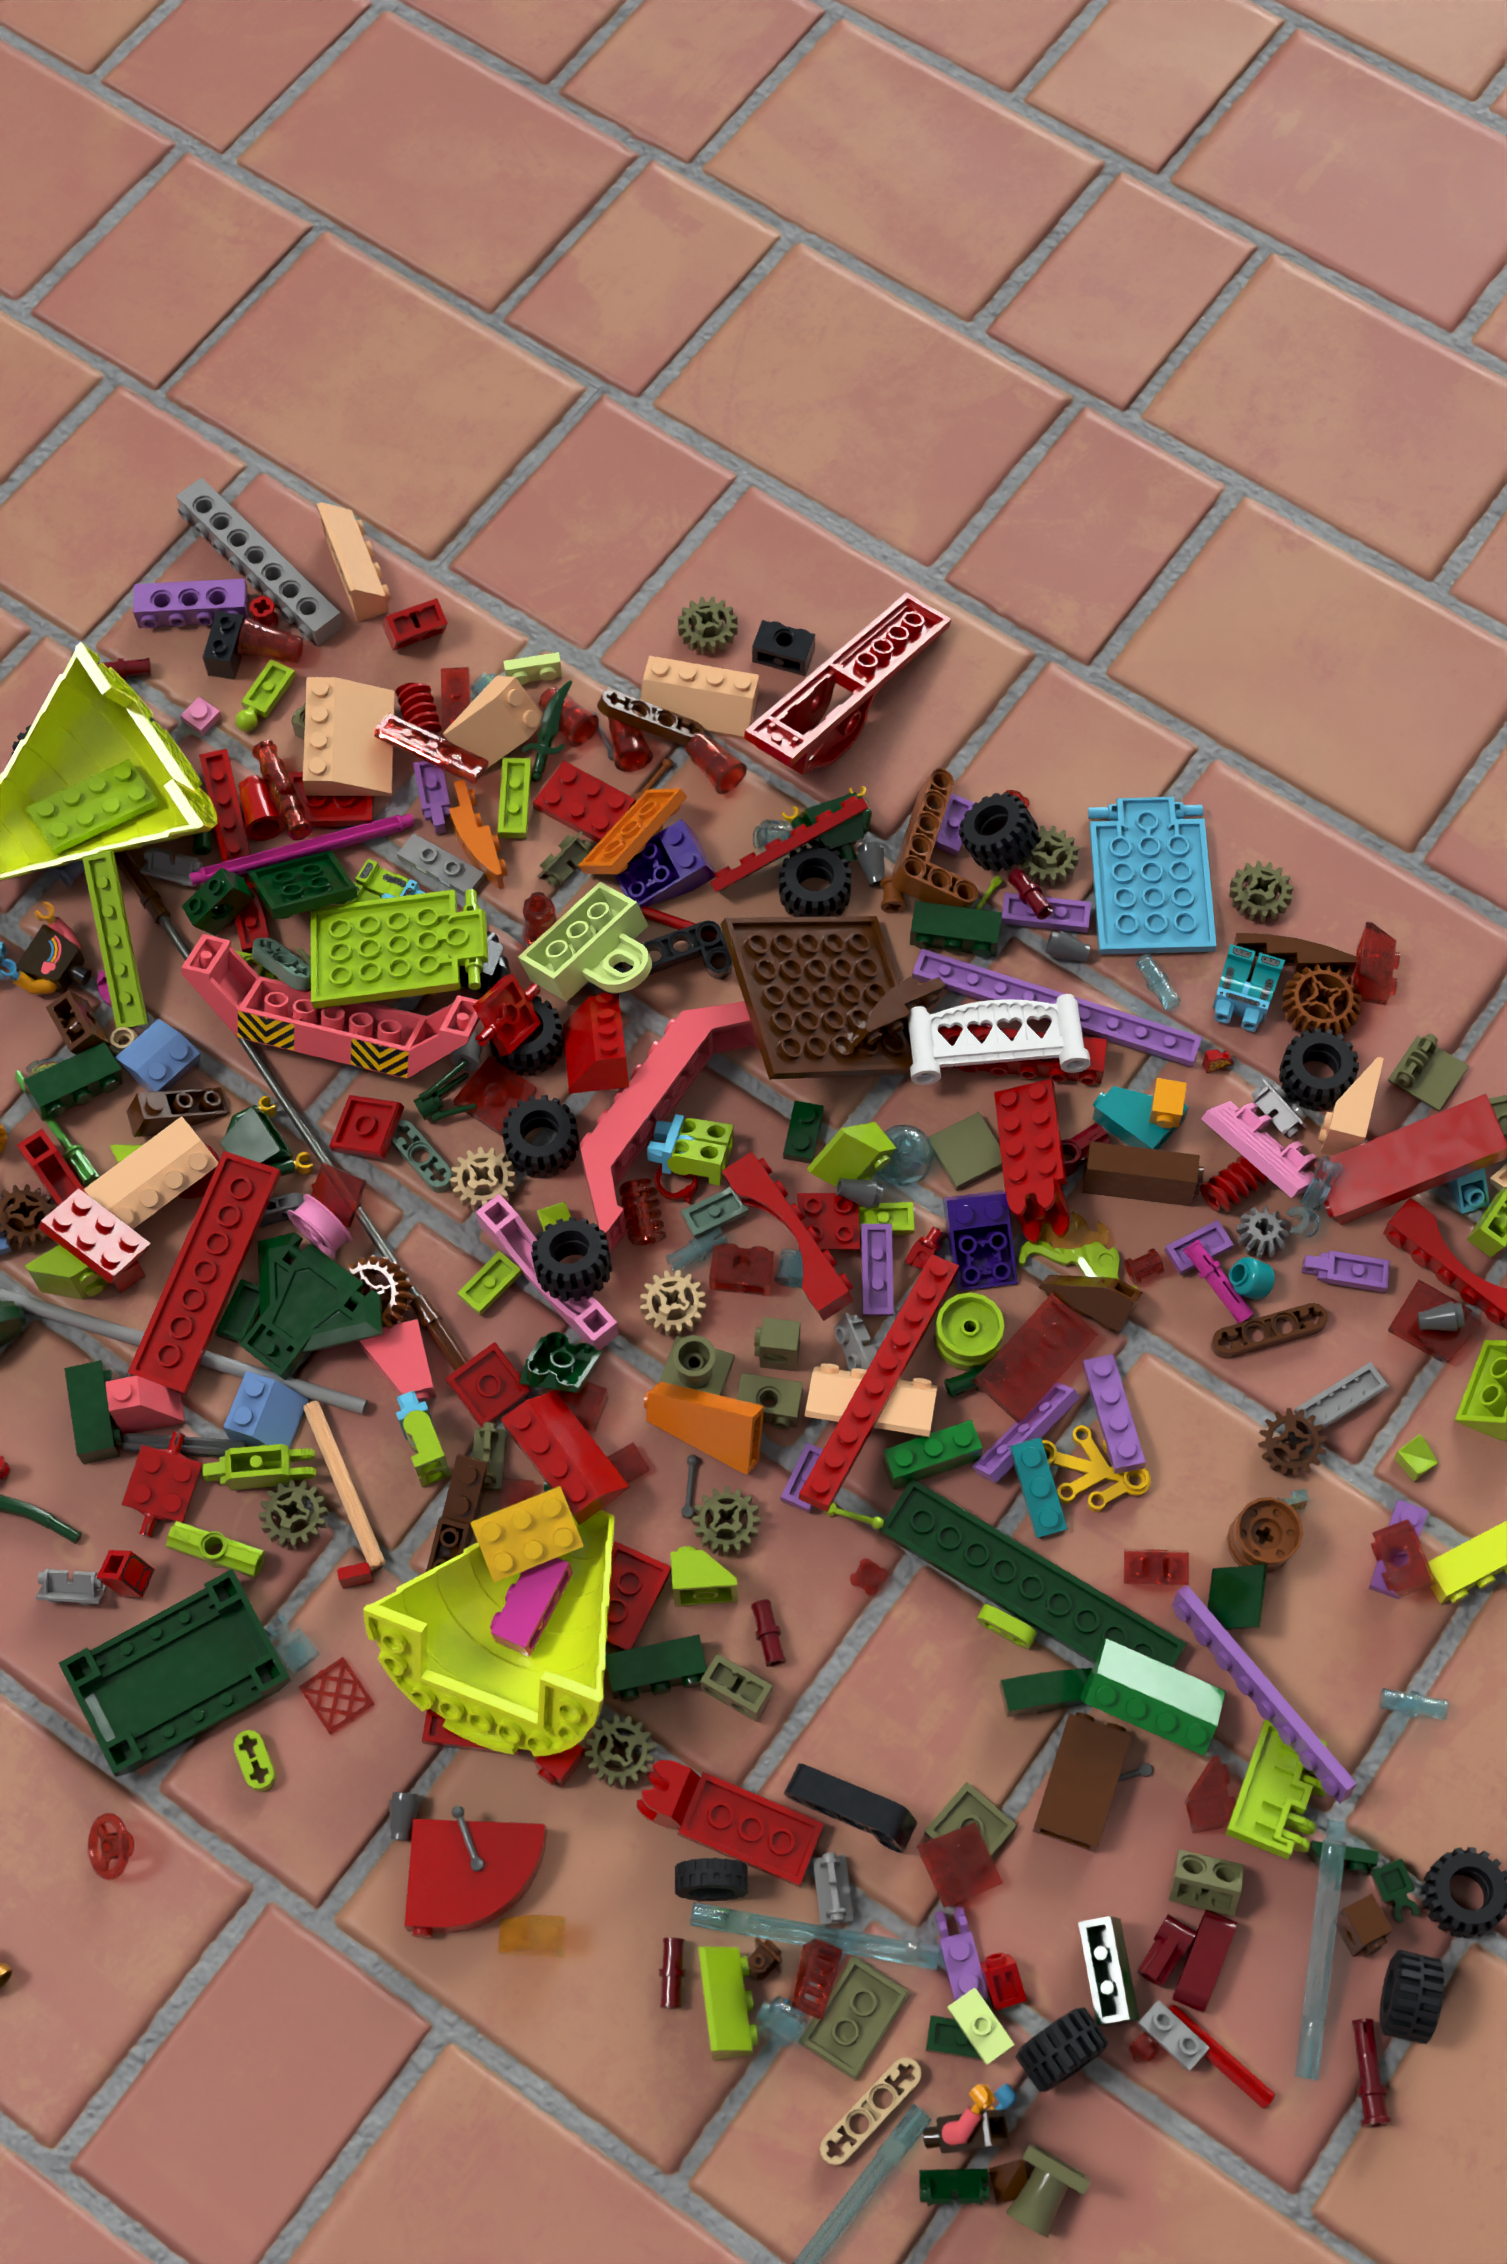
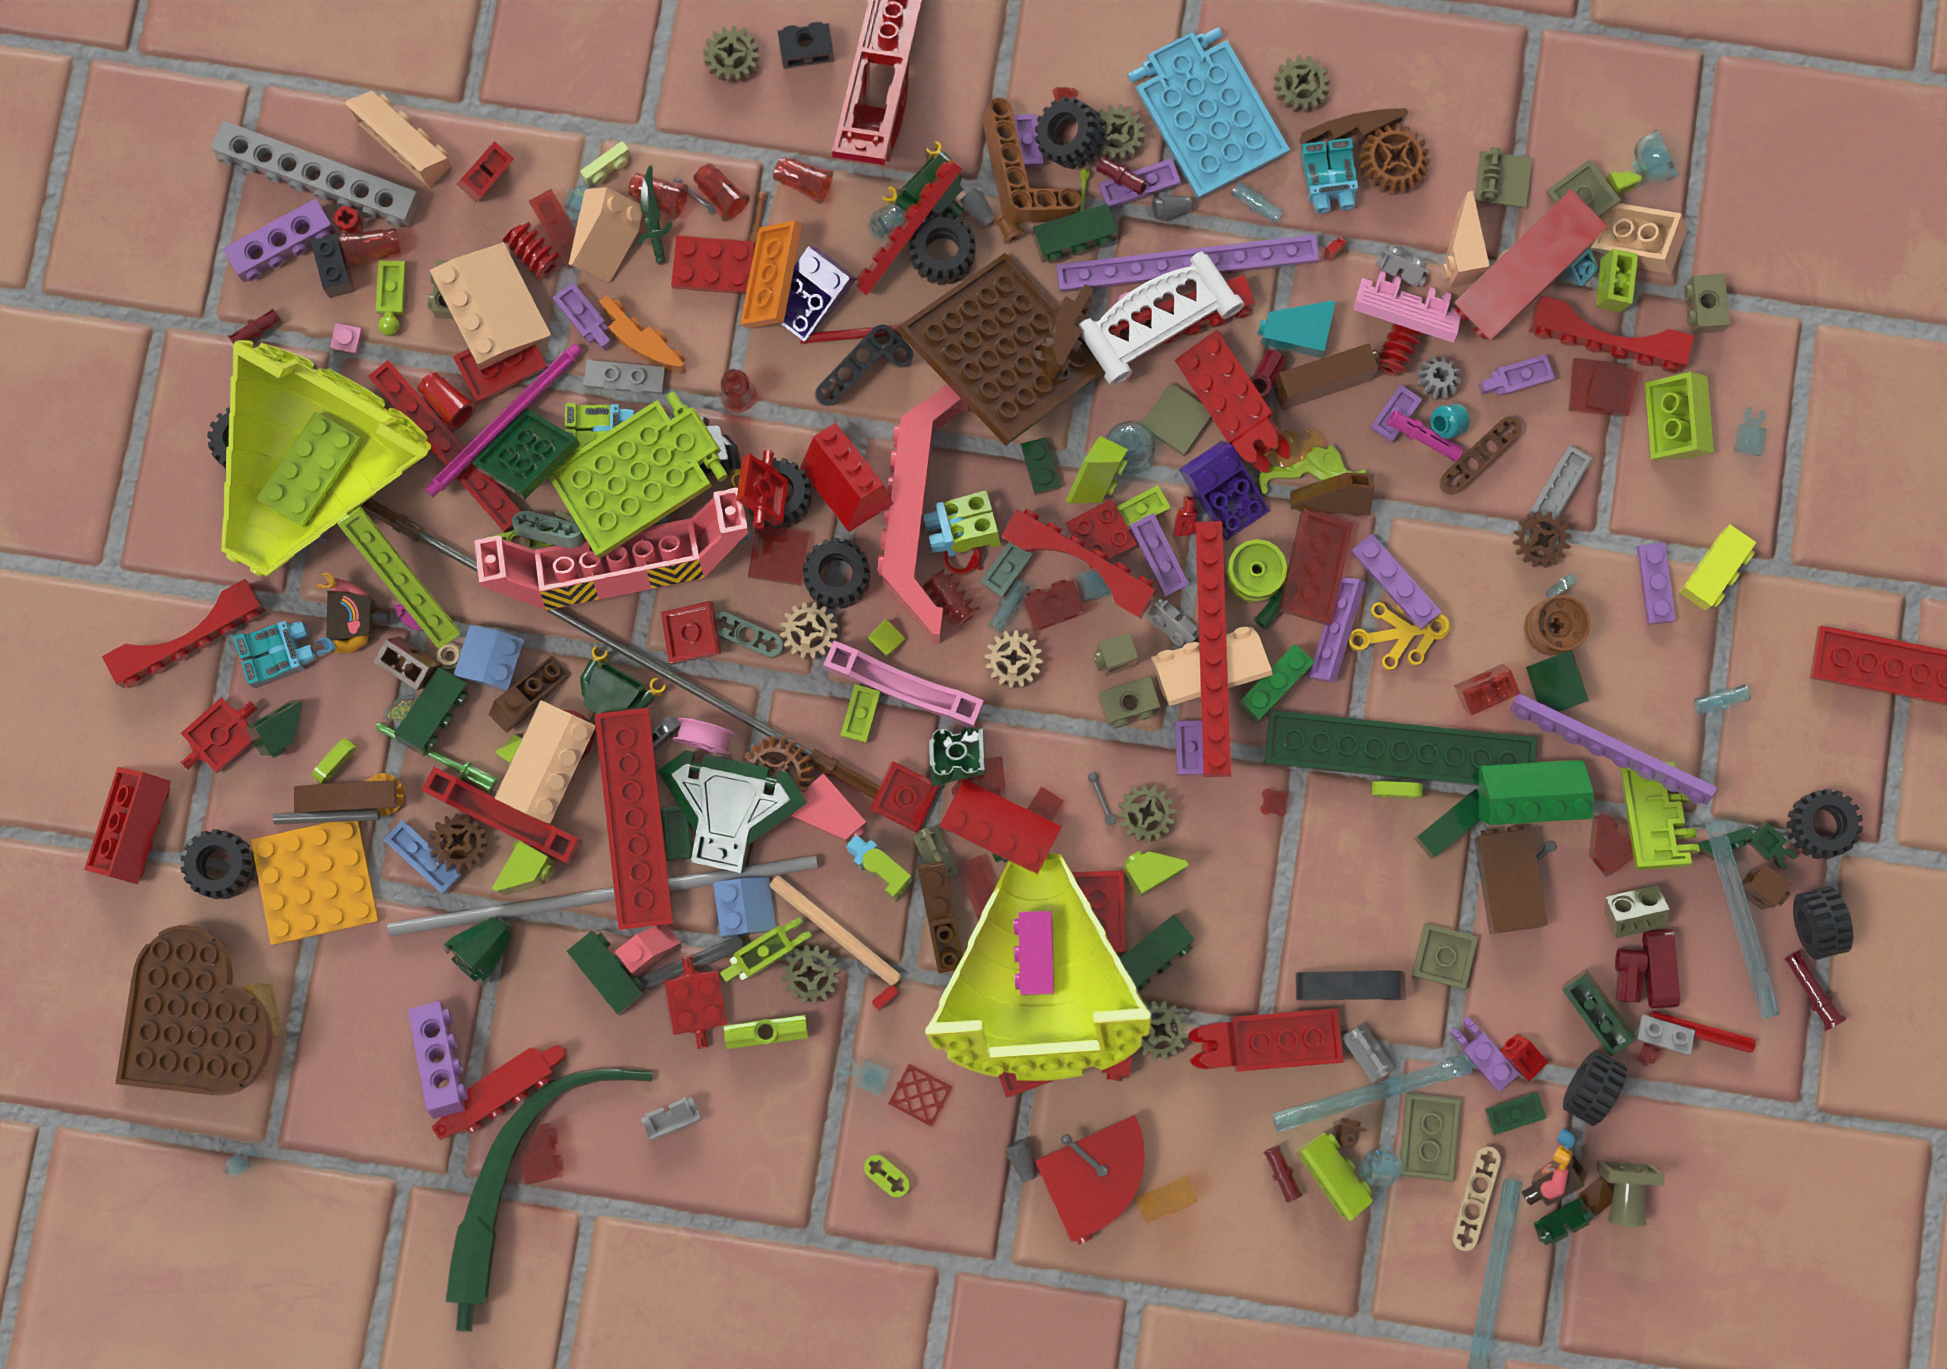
camera: 30 degrees left, 15 degrees up
(94, 1235) = (533, 836): plate -> none
(113, 1846) = (818, 1294): clear red piece -> none
(125, 1573) = (708, 1086): red brick -> none
(161, 866) = (411, 488): light grey hinge -> none
(175, 1675) = (790, 1142): dark green slope -> none
(218, 901) = (462, 501): dark green brick -> none
(282, 790) = (450, 370): clear red piece -> none
(338, 1192) = (700, 701): clear red piece -> none
(430, 1102) = (732, 588): dark green plant -> none
(431, 748) = (565, 281): clear red plate -> none
(514, 798) = (653, 288): lime plate -> none
(526, 1534) = (1010, 906): yellow plate -> none
(573, 851) = (726, 313): olive hinge -> none
(576, 1278) = (909, 650): black tyre -> none
(589, 944) = (790, 393): yellowish green brick -> none
(612, 704) = (701, 168): reddish brown beam -> none
(697, 1365) = (1059, 721): olive plant -> none
(710, 1422) = (1093, 743): orange slope -> none
(711, 1879) = (1279, 1093): black tyre -> none
(712, 696) = (759, 125): light nougat slope -> none
(736, 1687) = (1222, 939): olive brick -> none
(768, 1633) = (1221, 884): dark red pin -> none
(822, 1957) = (1395, 1113): clear red slope -> none
(860, 1191) = (1119, 497): dark grey cone -> none
(876, 1522) = (1262, 759): lime hinge -> none
(959, 1865) = (1452, 988): clear red hinge -> none
(980, 2026) = (1526, 1099): yellowish green plate -> none
(1038, 1487) = (1368, 670): teal plate -> none
(1144, 1266) = (1361, 450): clear red bush -> none
(1167, 1103) = (1321, 309): light orange brick -> none
(1315, 1197) = (1468, 330): clear light blue piece -> none
(1322, 1048) = (1427, 200): black tyre -> none
(1375, 965) = (1423, 108): clear red slope -> none
(1416, 1458) = (1637, 505): lime slope -> none
(1416, 1573) = (1663, 578): clear red brick -> none
(1442, 1318) = (1609, 384): dark grey cone -> none

